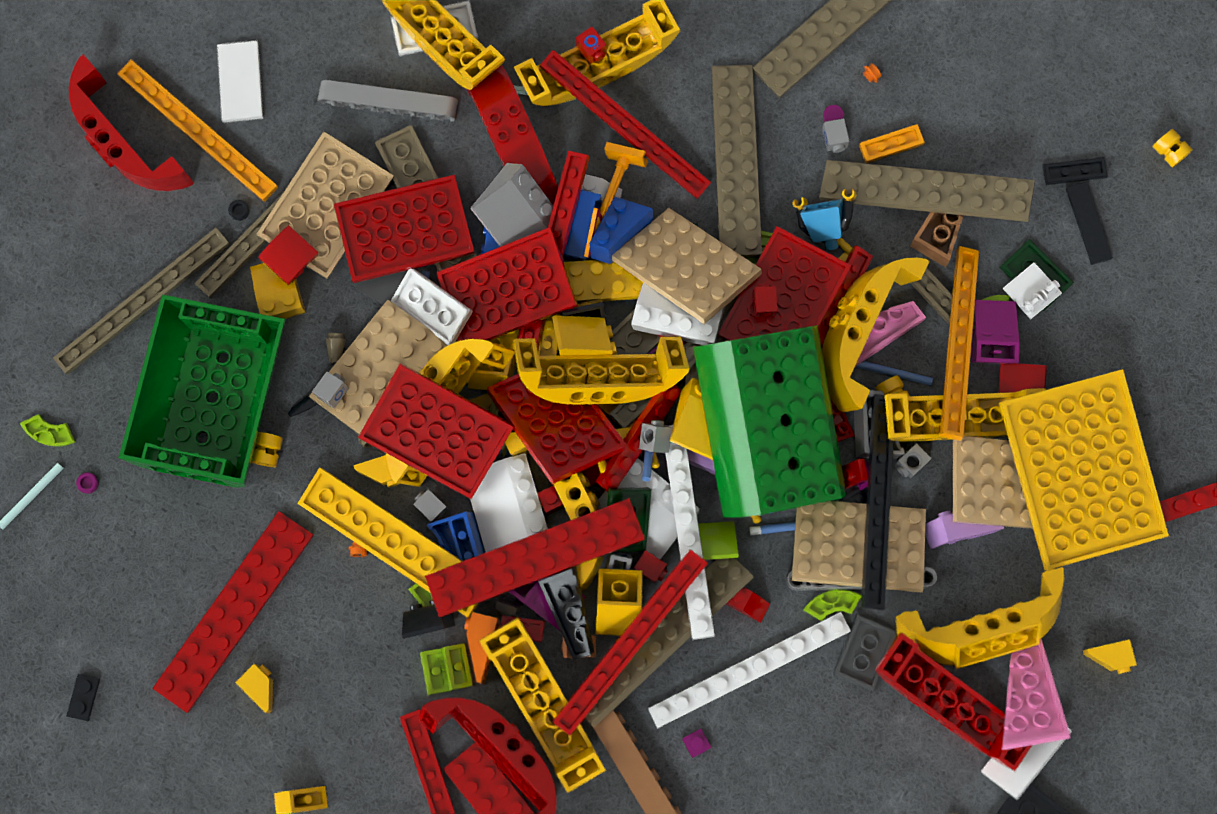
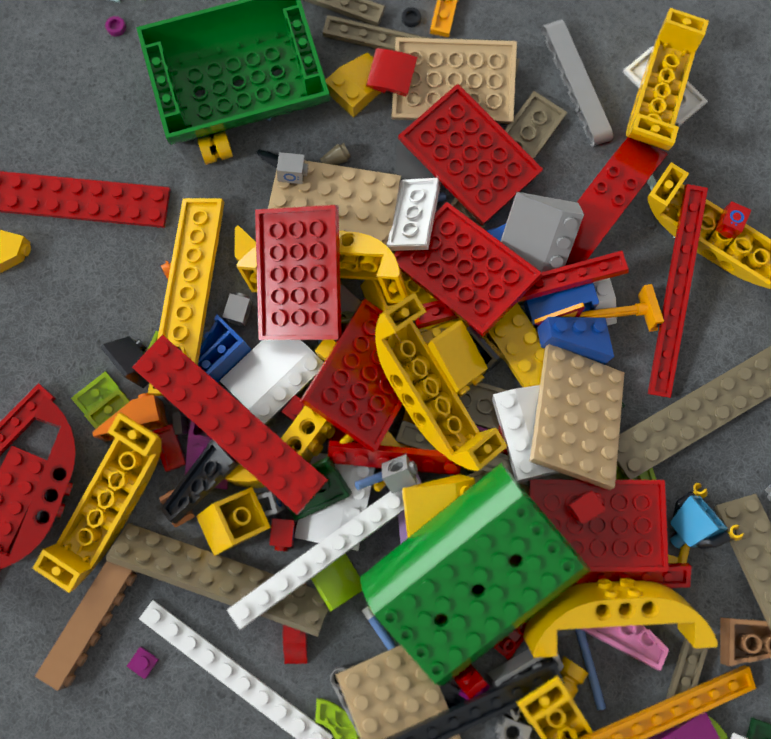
camera: 55 degrees right, 0 degrees up
(629, 642) = (197, 553): red plate -> none

